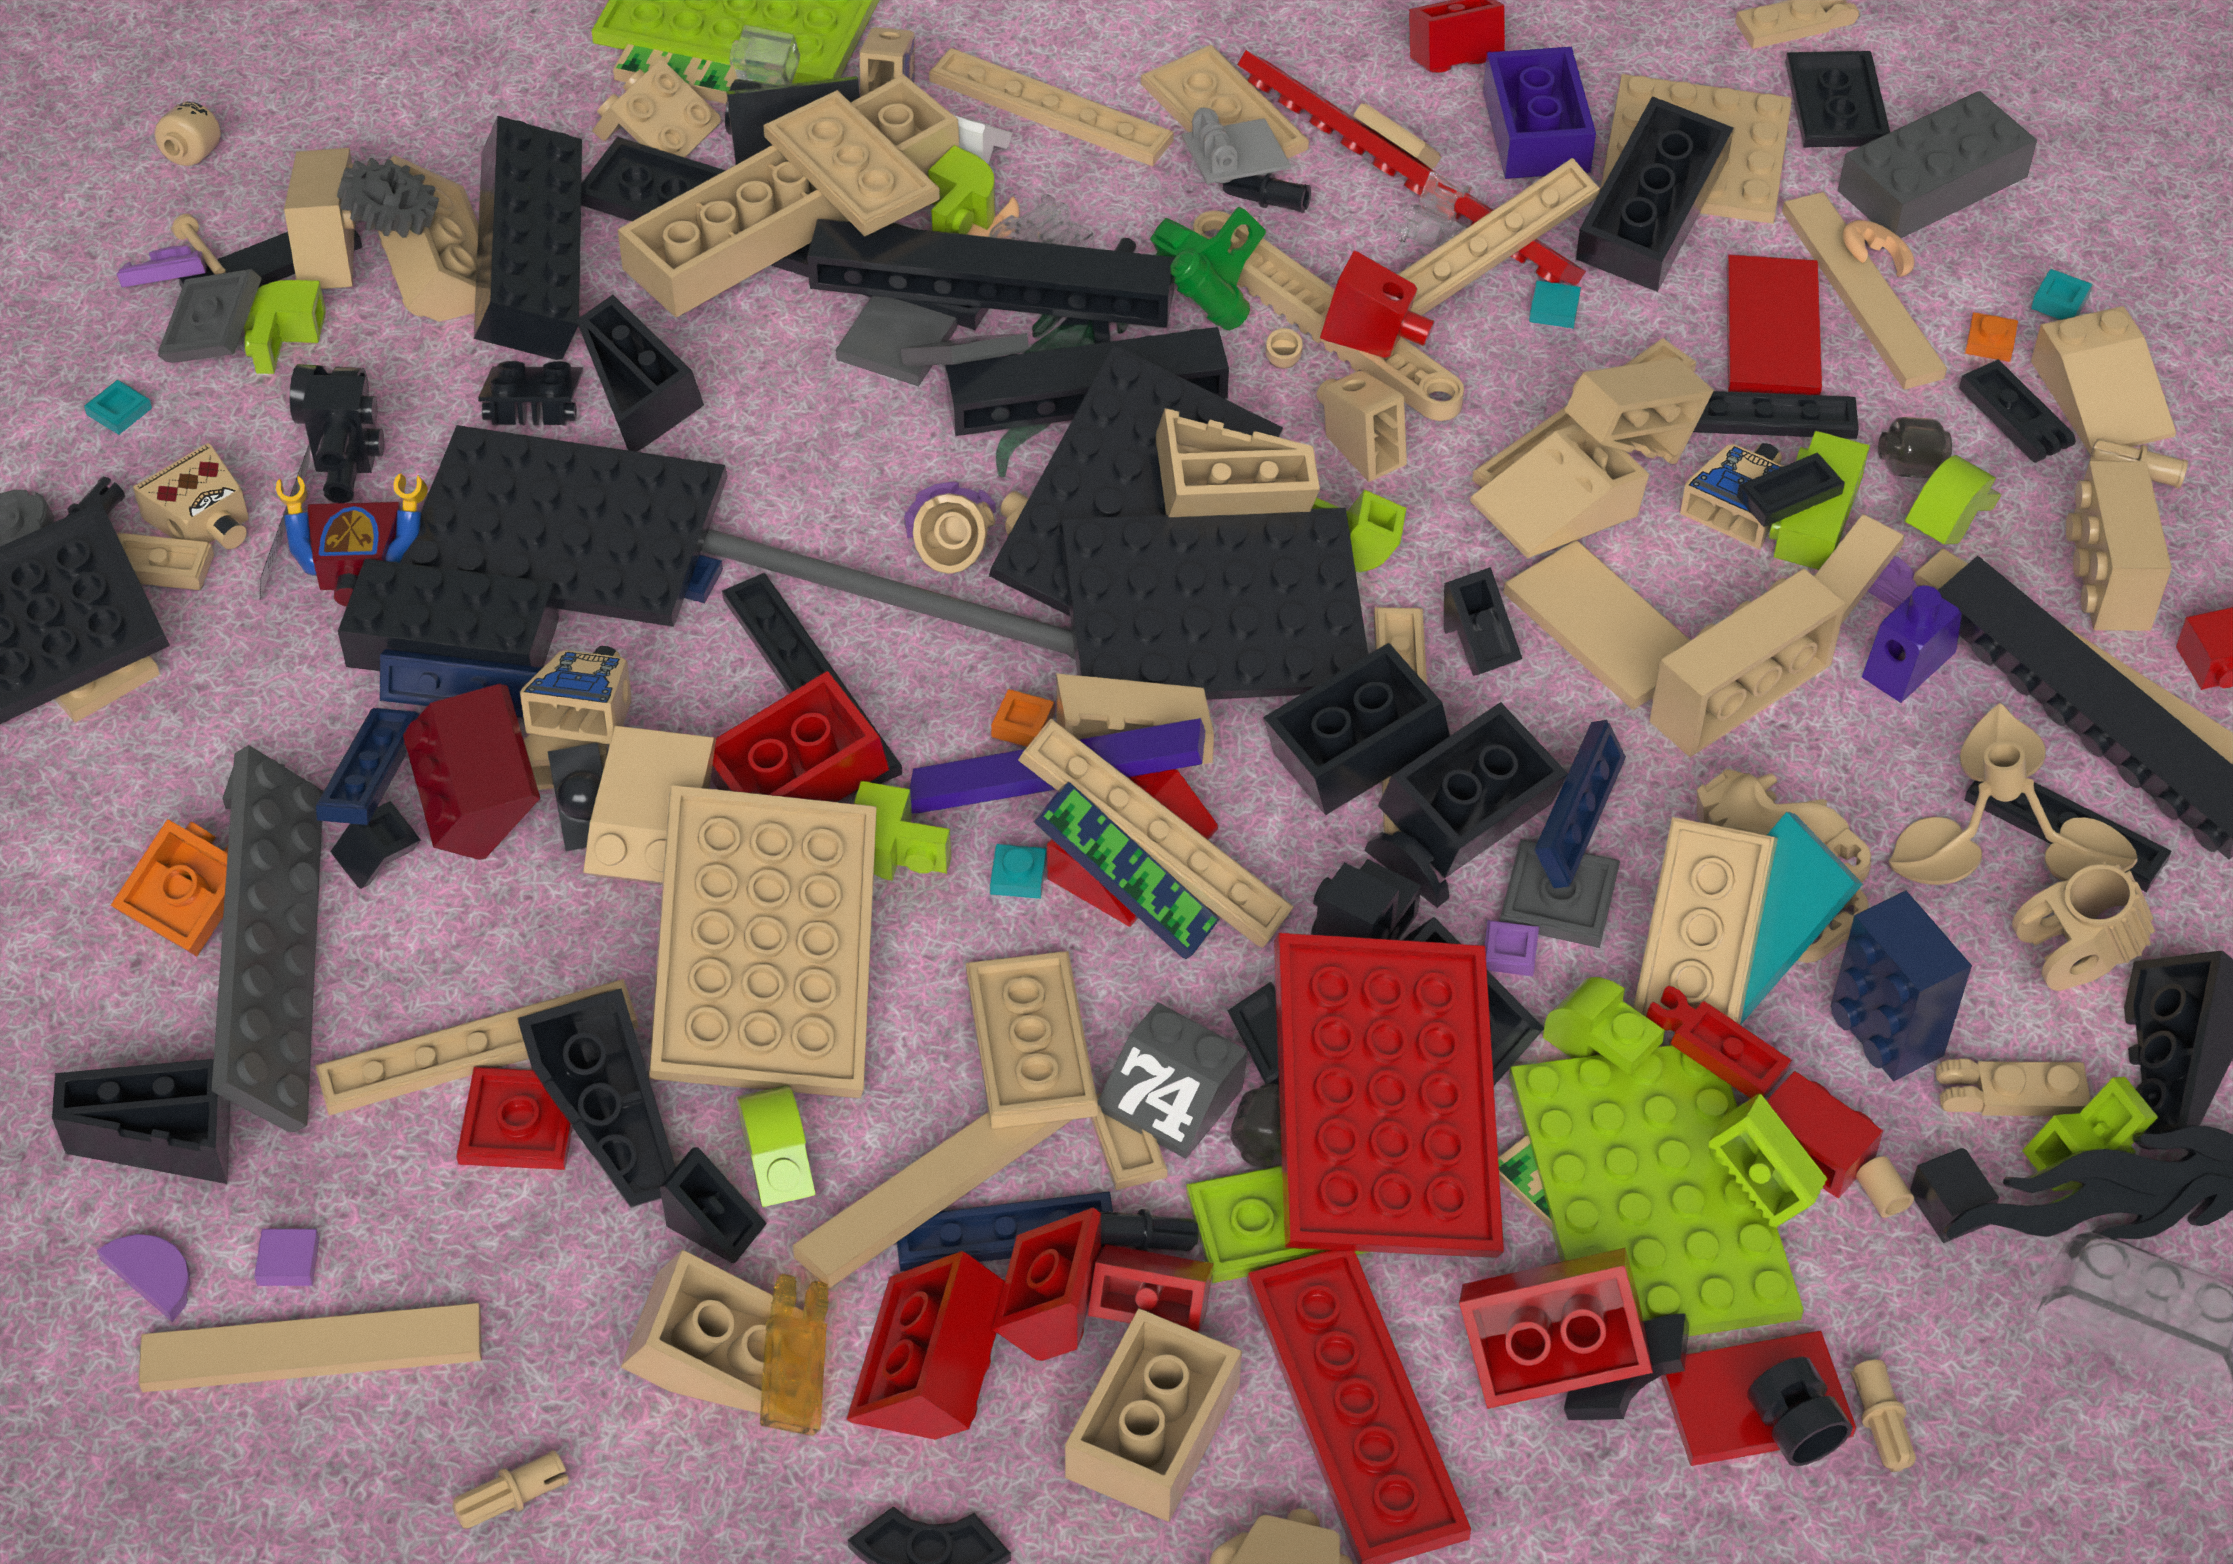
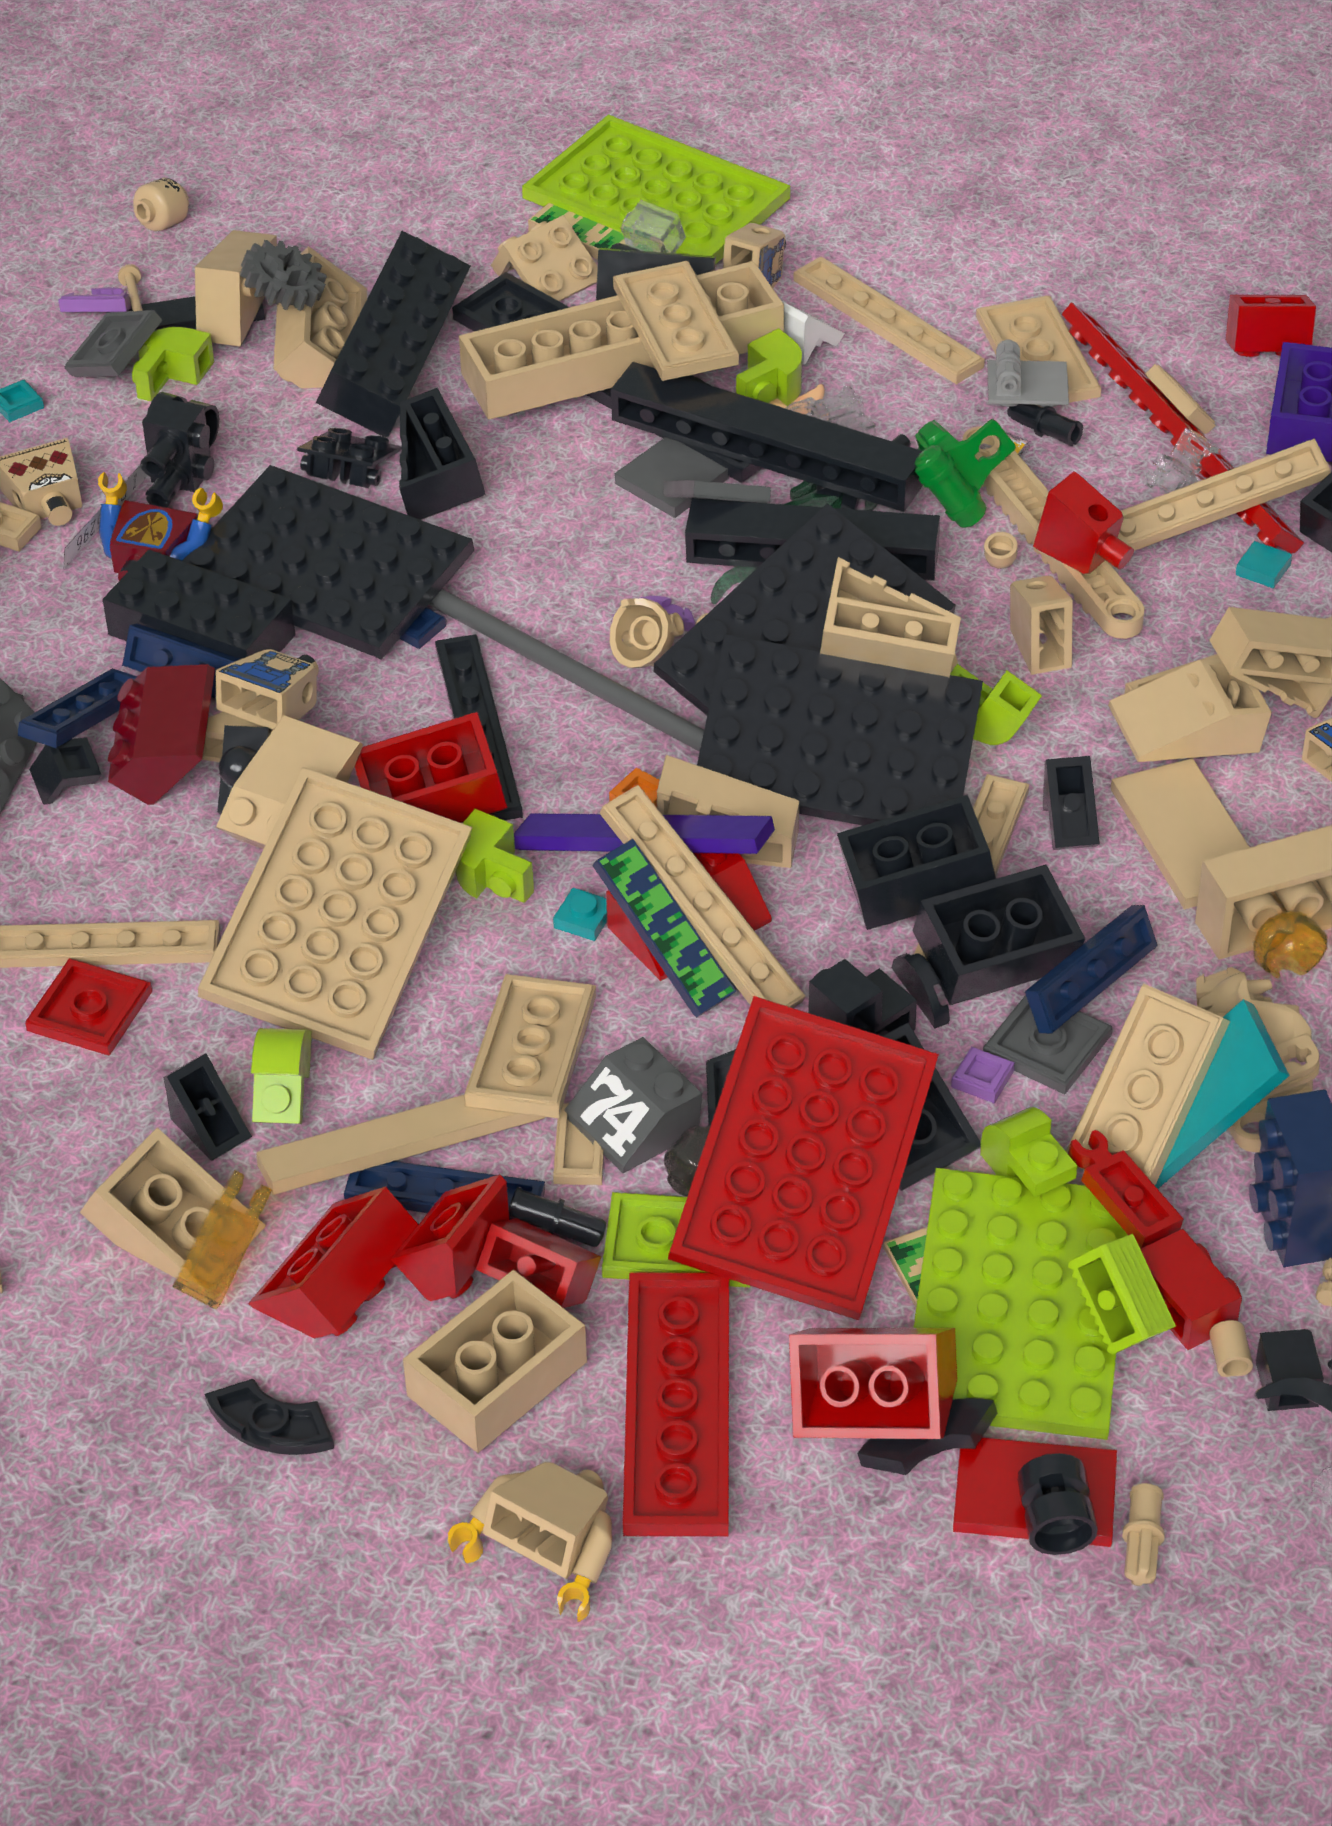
camera: 20 degrees right, 5 degrees down
(599, 1081) = (155, 982): black wedge -> none
(1762, 723) = (1289, 943): none -> clear yellow hair

